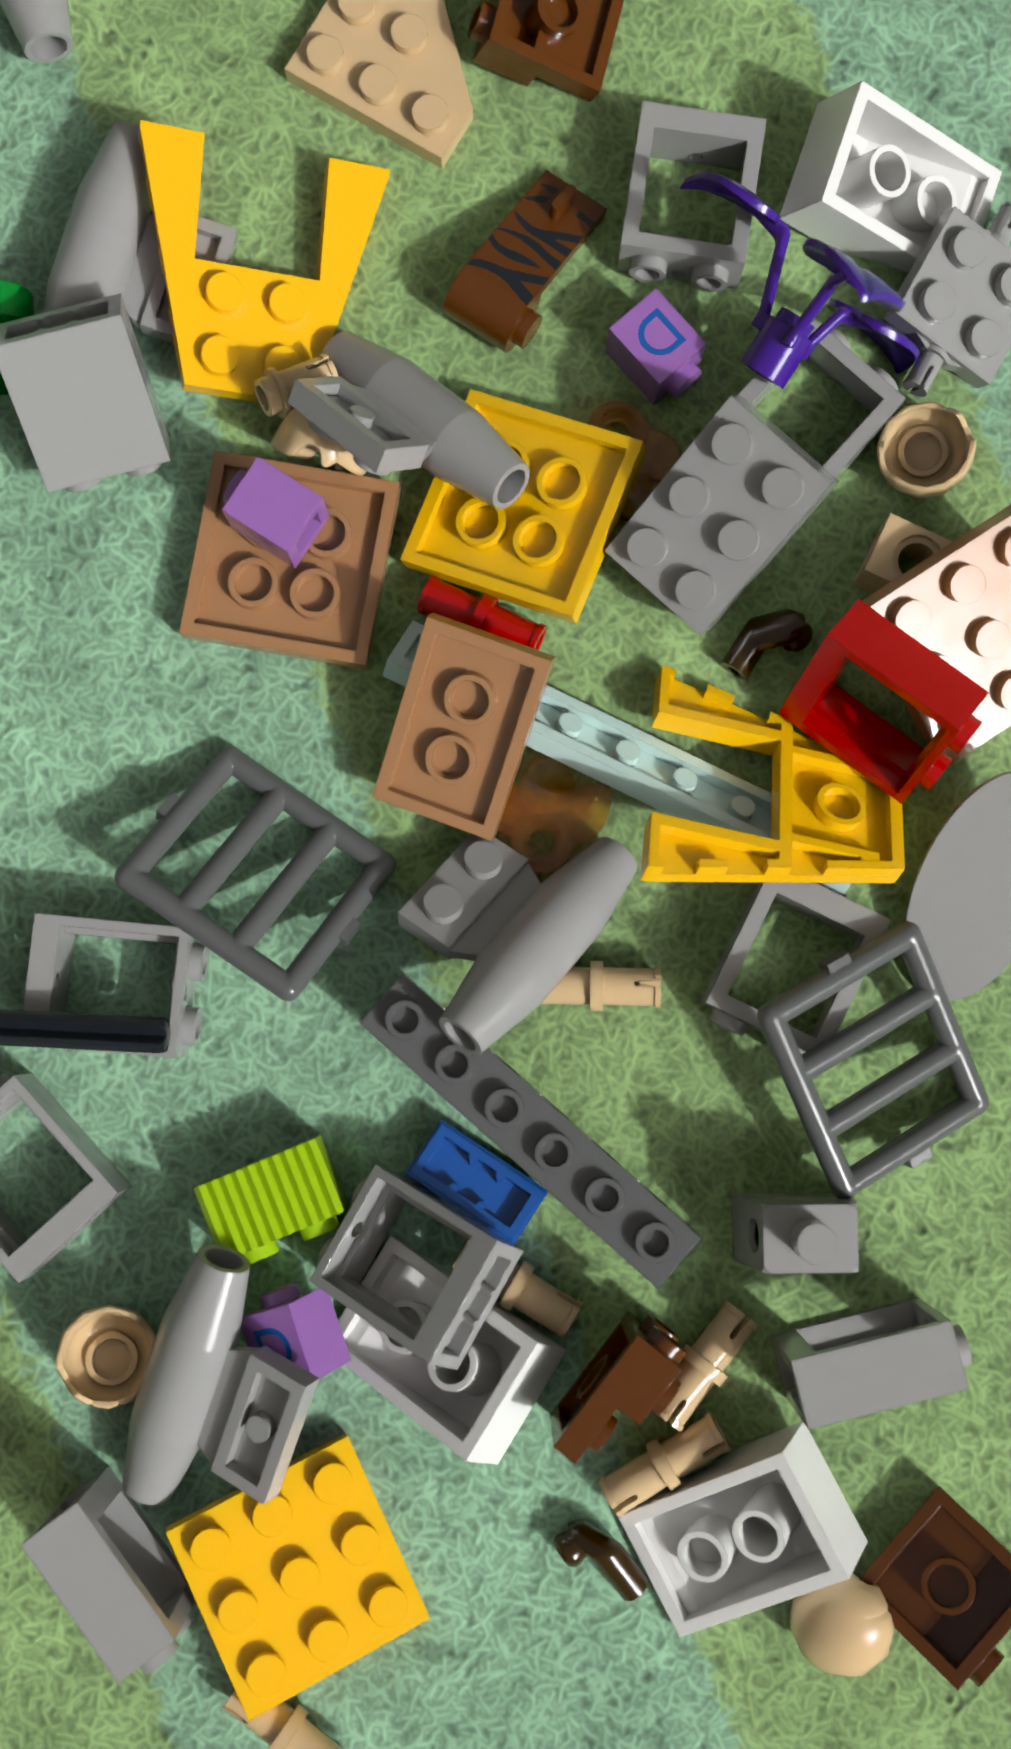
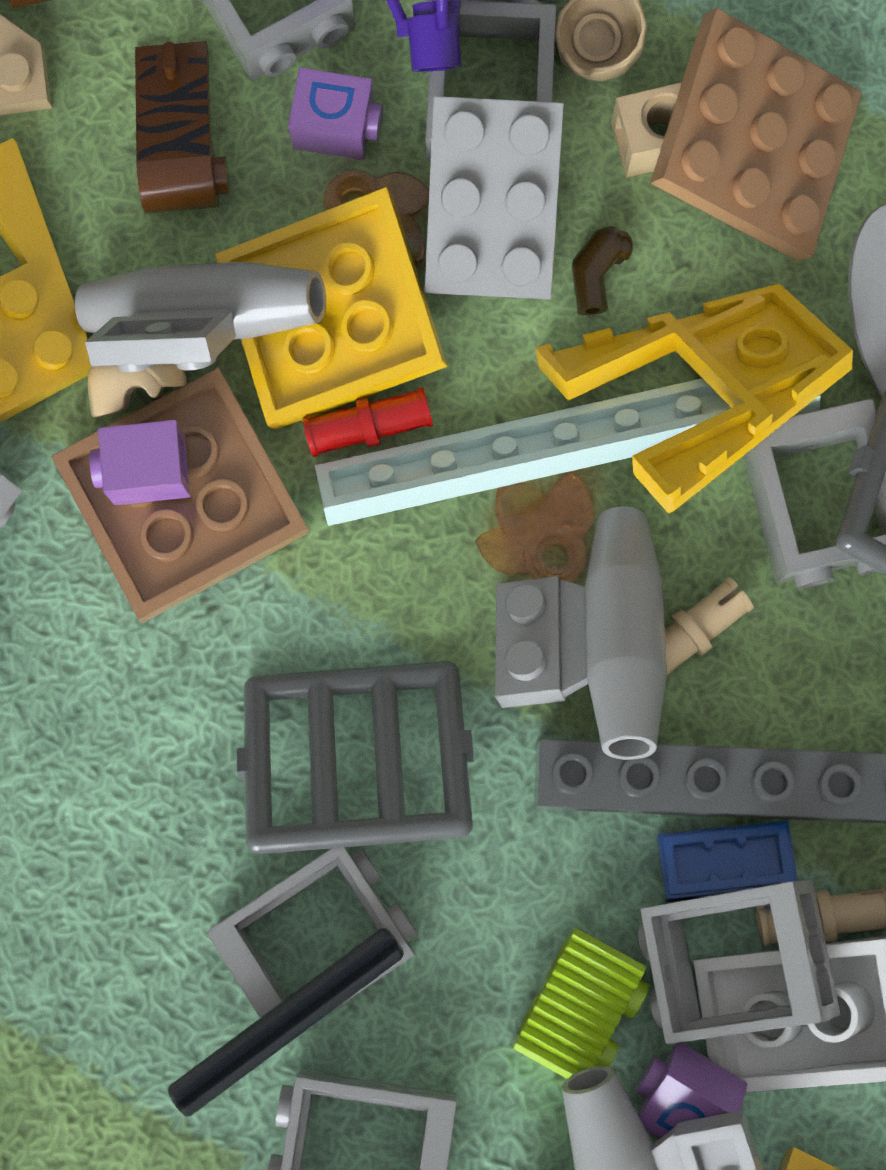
camera: 40 degrees left, 5 degrees down
(276, 386) = (70, 366): tan pin -> none
(462, 725) = (427, 511): medium nougat plate -> none
(861, 735) = (734, 281): red window -> none

